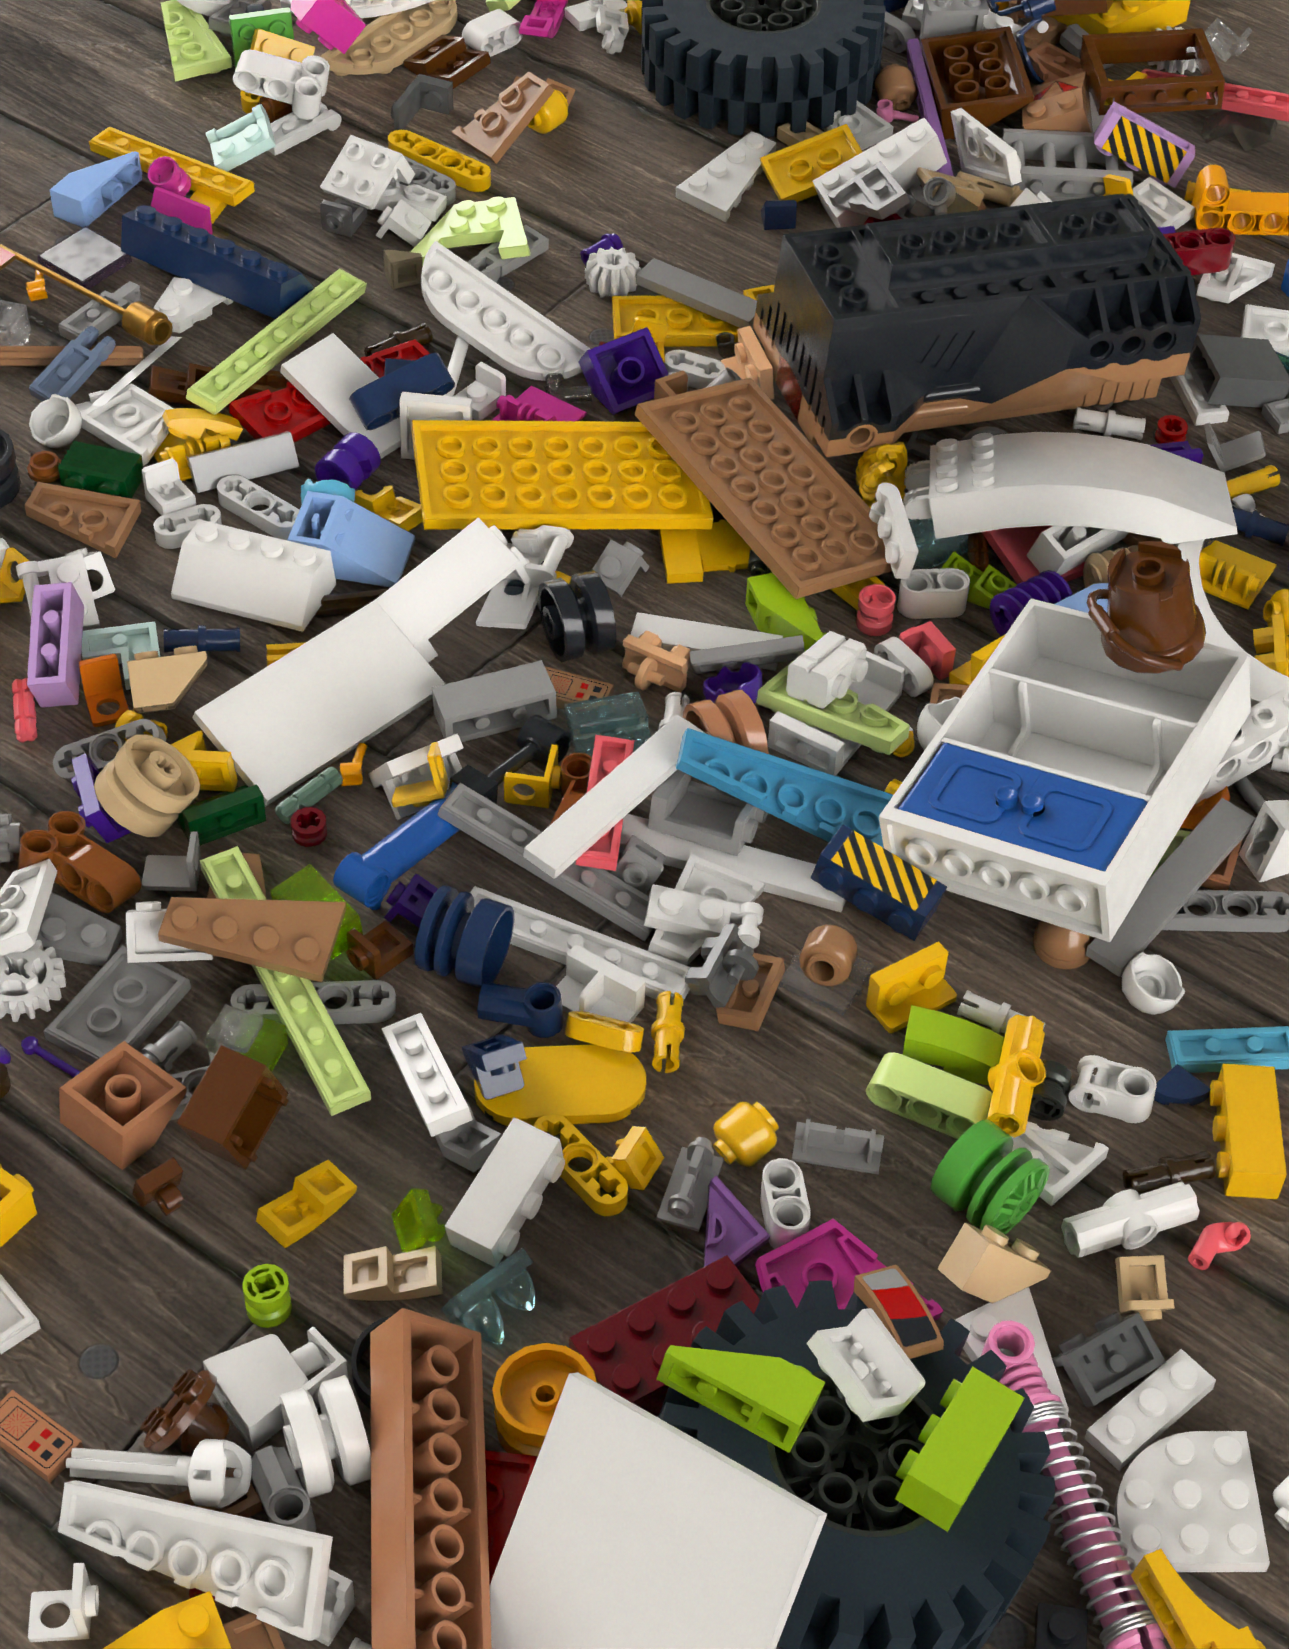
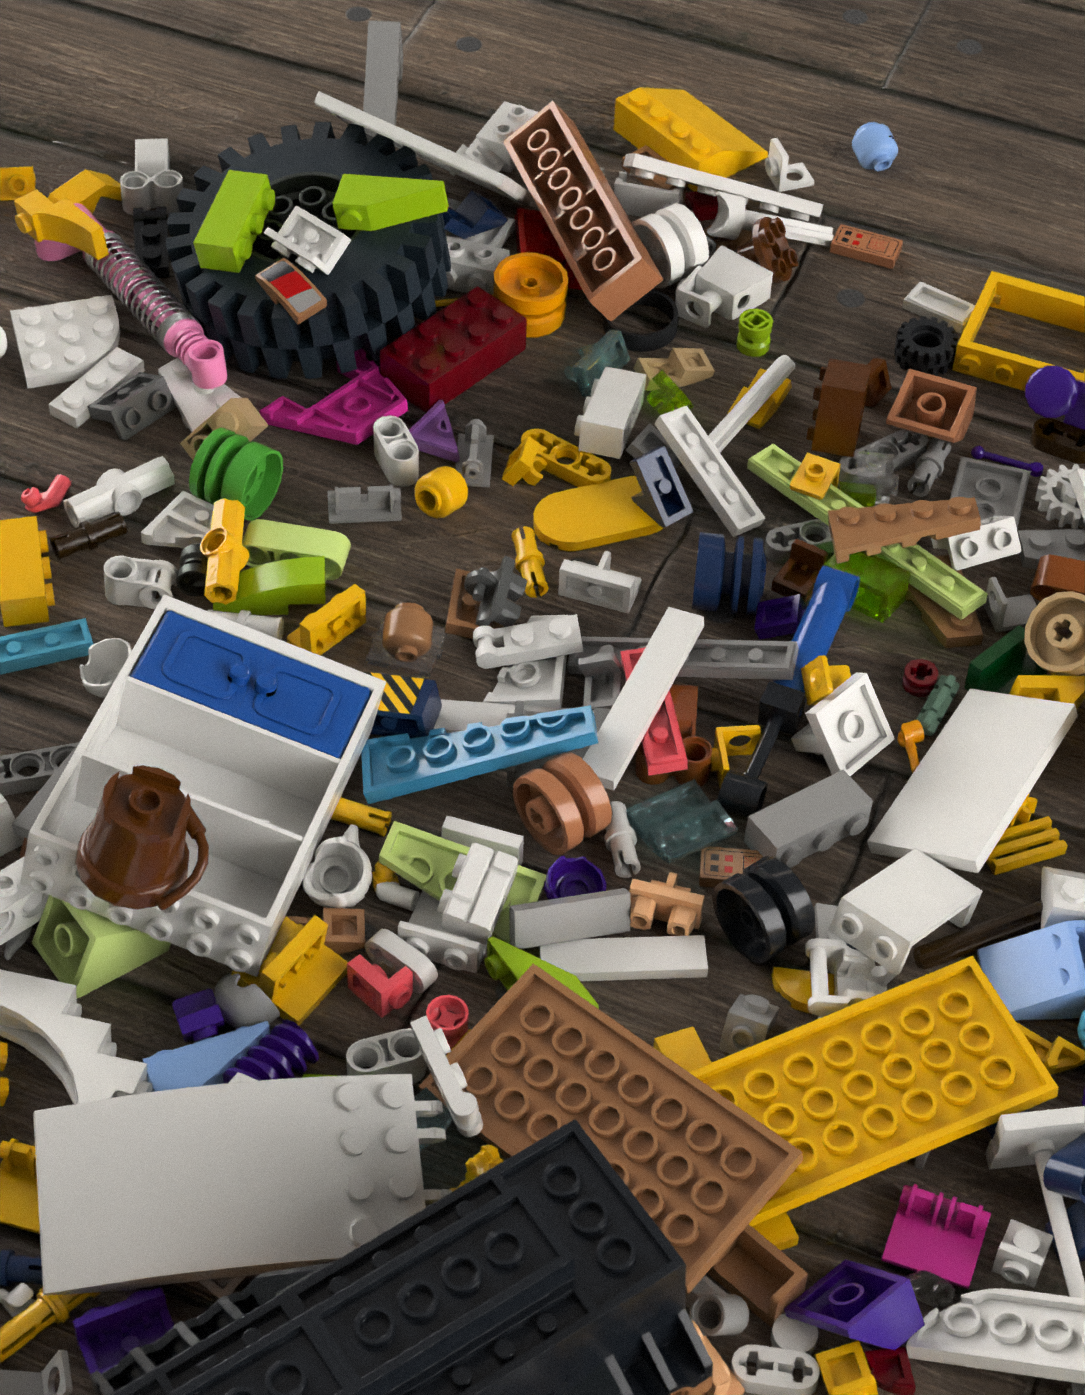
camera: 165 degrees right, 0 degrees up
(63, 1253) = (926, 333): none -> black tyre
(302, 1044) = (815, 476): none -> yellow bracket
(334, 1166) = (751, 402): none -> white axle
(534, 1007) = (646, 552): dark blue piece -> none
(556, 937) = (621, 620): white tile -> none
(604, 1031) = (583, 535): yellow beam -> none
(1143, 1286) = (105, 442): tan bracket -> none
(1180, 1088) = (81, 604): dark blue tile -> none

